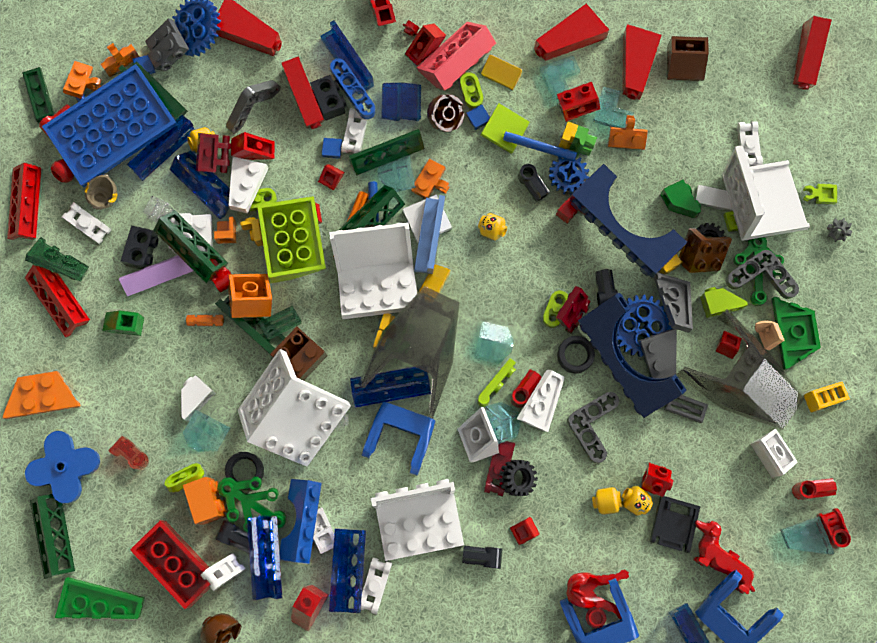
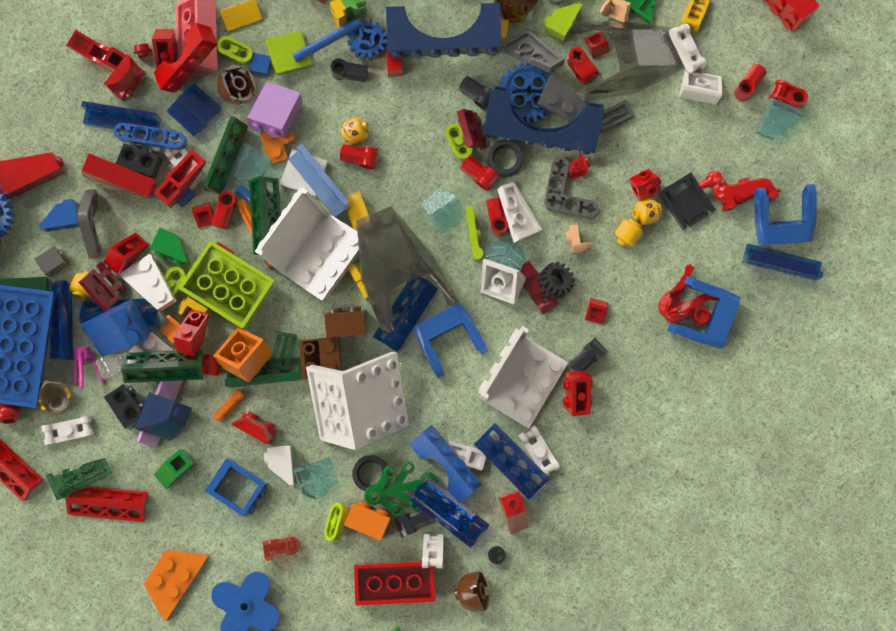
camera: 45 degrees left, 5 degrees up
(146, 361) = (220, 476): none -> blue window
(149, 185) = (82, 357): none -> dark pink plant
(153, 279) = (162, 416): none -> dark blue slope
(190, 191) = (117, 329): none -> blue slope
(200, 103) = (52, 261): none -> dark grey brick
(203, 355) = (251, 425): none -> red slope
(232, 244) = (191, 333): none -> red slope
(237, 79) = (61, 217): none -> blue slope
(269, 629) = (490, 555): none -> black bush
(286, 174) = (170, 245): none -> green slope
(340, 136) = (180, 178): none -> red slope
(341, 348) = (345, 323): none -> reddish brown slope
(345, 189) = (224, 212): none -> red piece
(378, 34) = (125, 79): none -> red slope
(445, 60) = (198, 45): none -> red arch
(445, 575) = (578, 393): none -> red brick
(453, 156) = (275, 110): none -> brick
(479, 251) = (364, 157): none -> red piece
(546, 350) = (483, 176): none -> red piece
(564, 459) = (572, 236): none -> light nougat plate
(621, 416) = (579, 167): none -> red hinge
(701, 351) = (583, 68): none -> red piece
(792, 415) = (687, 48): none -> white plate

